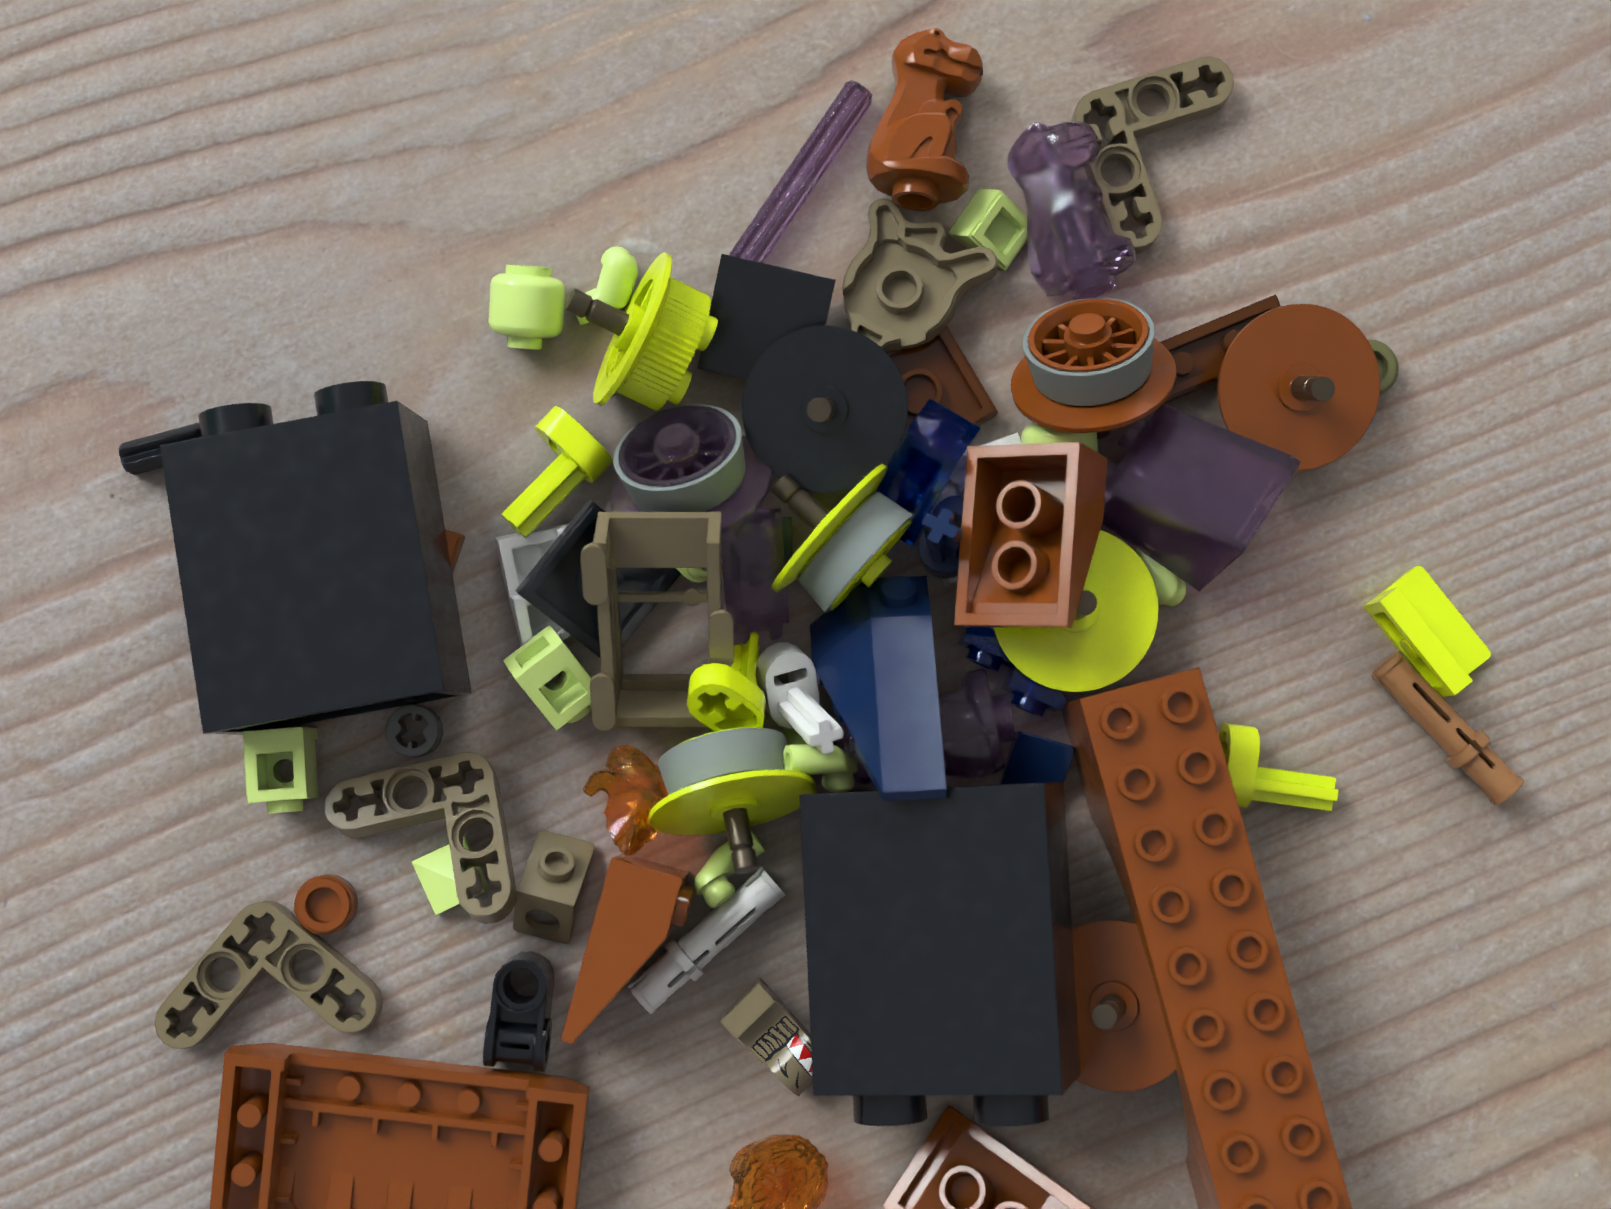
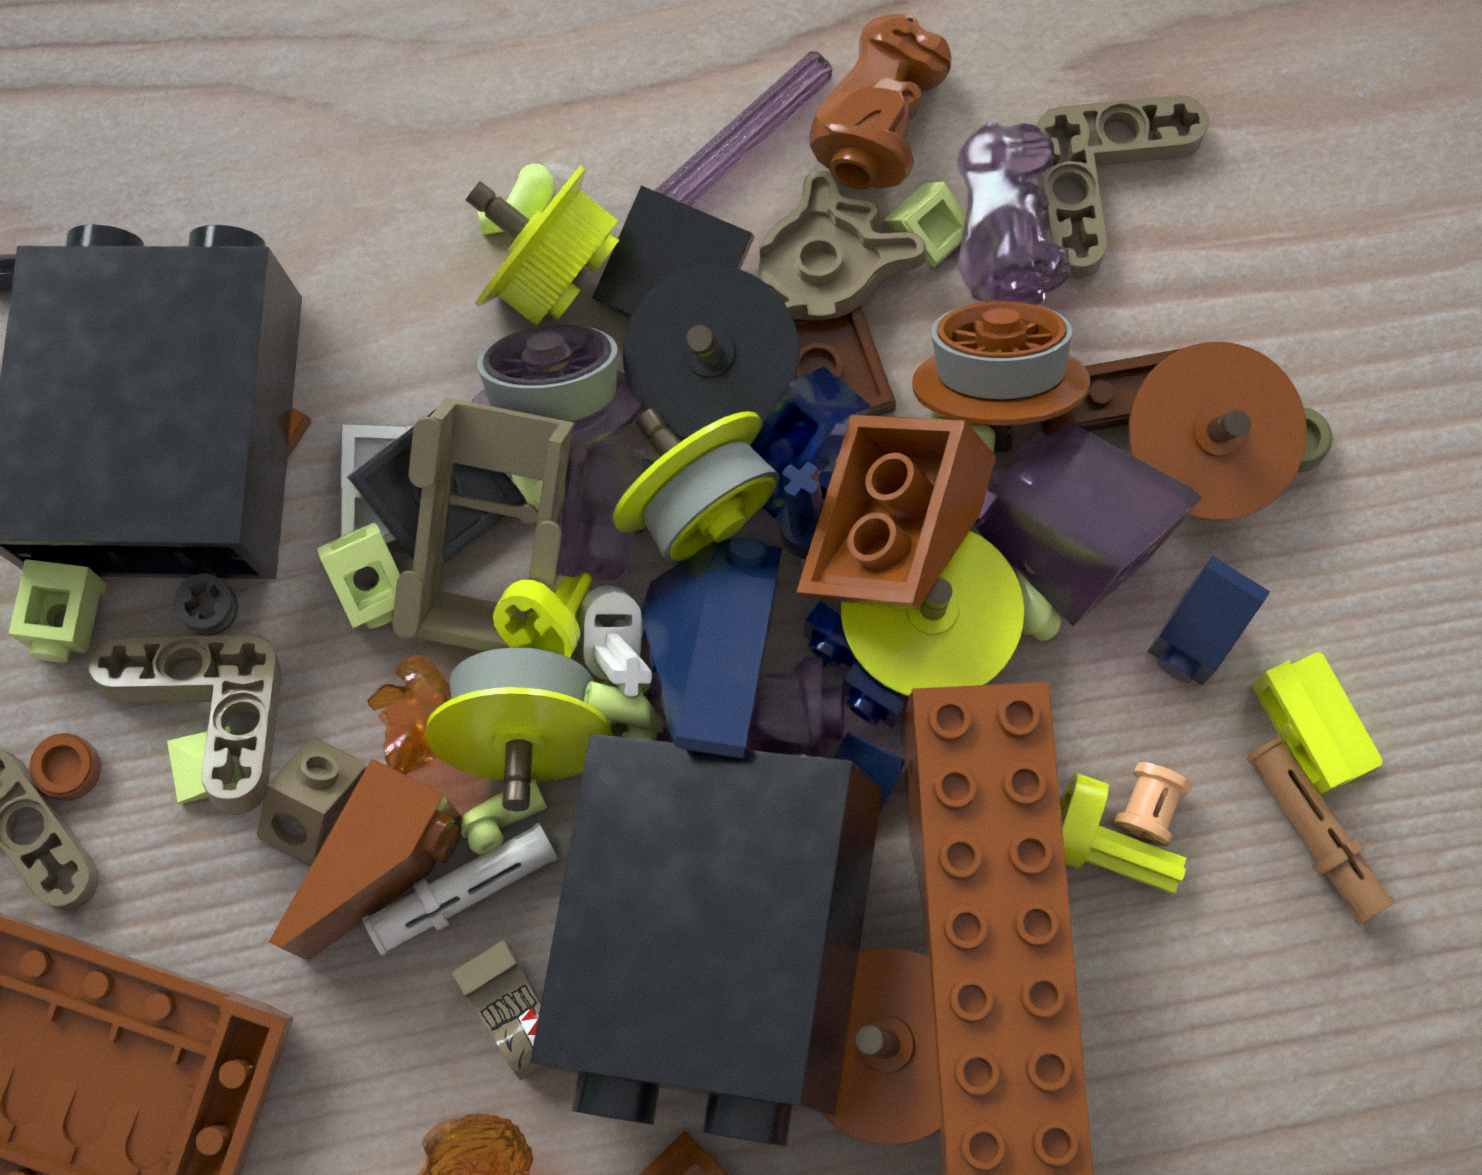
camera: 15 degrees right, 10 degrees down
(519, 1024) = (238, 929): black piece -> none
(526, 305) = (430, 200): yellowish green head -> none
(578, 459) = (446, 361): neon yellow piece -> none
(1298, 736) = (1152, 803): none -> light nougat bush
(1318, 567) = (1207, 622): none -> dark blue slope

